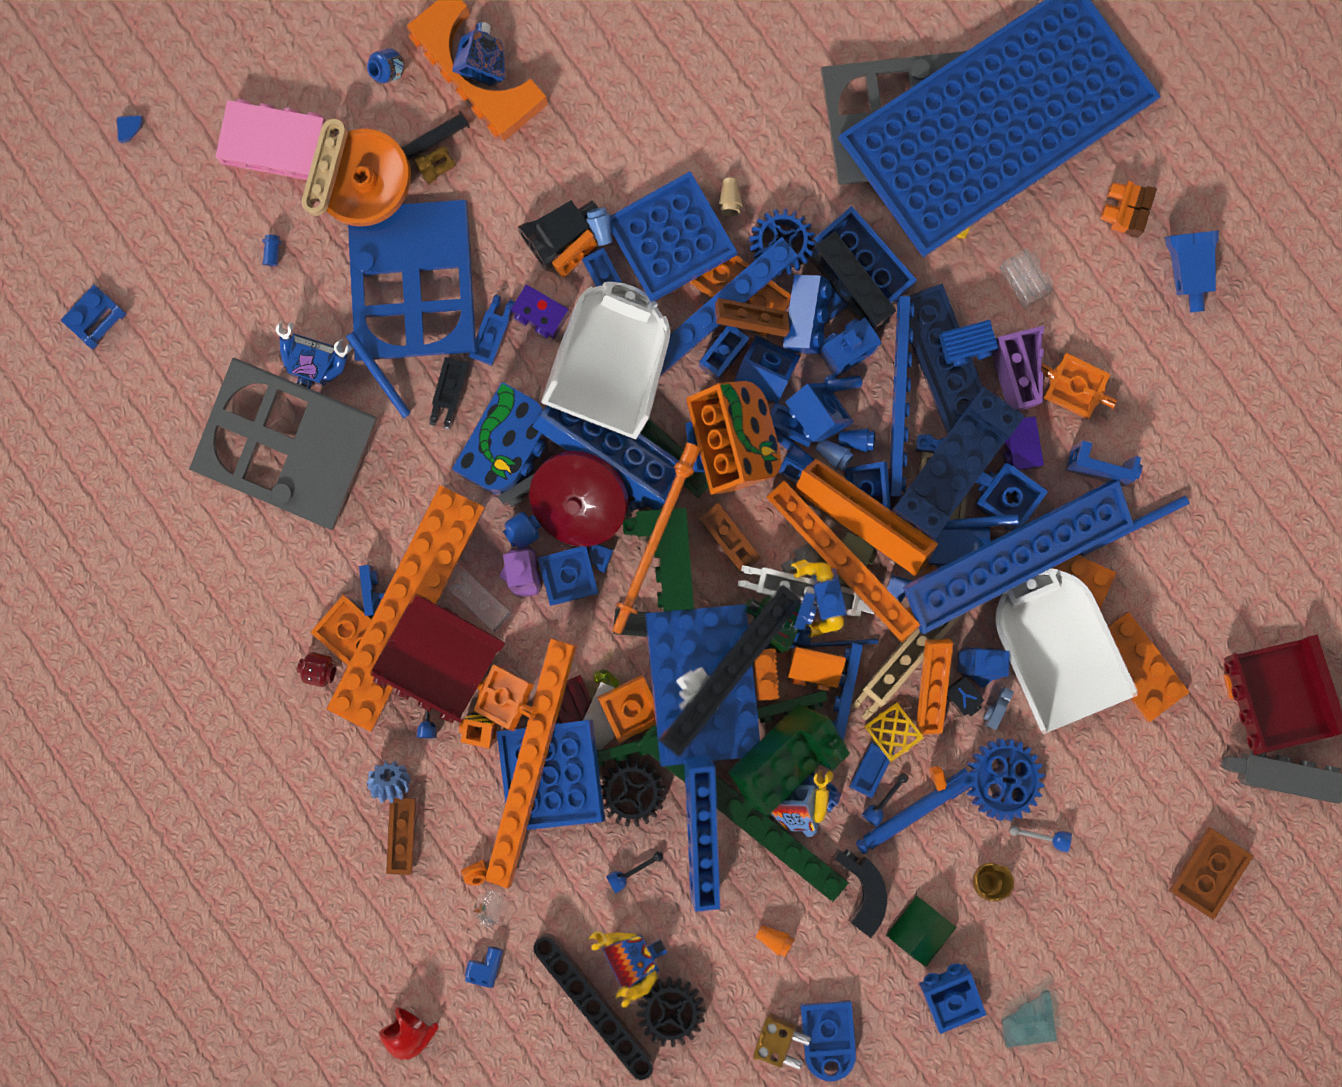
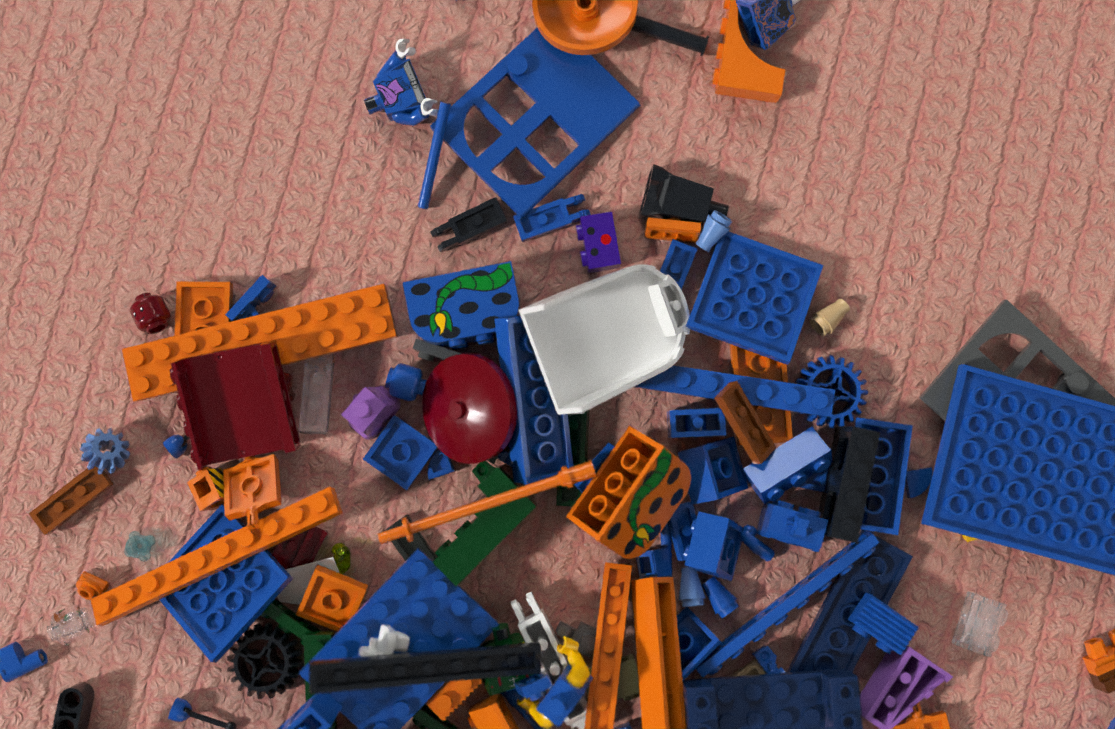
camera: 45 degrees right, 0 degrees up
(319, 458) = (327, 166): dark grey door -> none
(428, 171) = (637, 52): pearl gold piece -> none
(474, 823) = (132, 550): none -> clear light blue plate
(728, 536) = (546, 558): dark orange plate -> none
(894, 236) = (917, 481): none -> blue tile

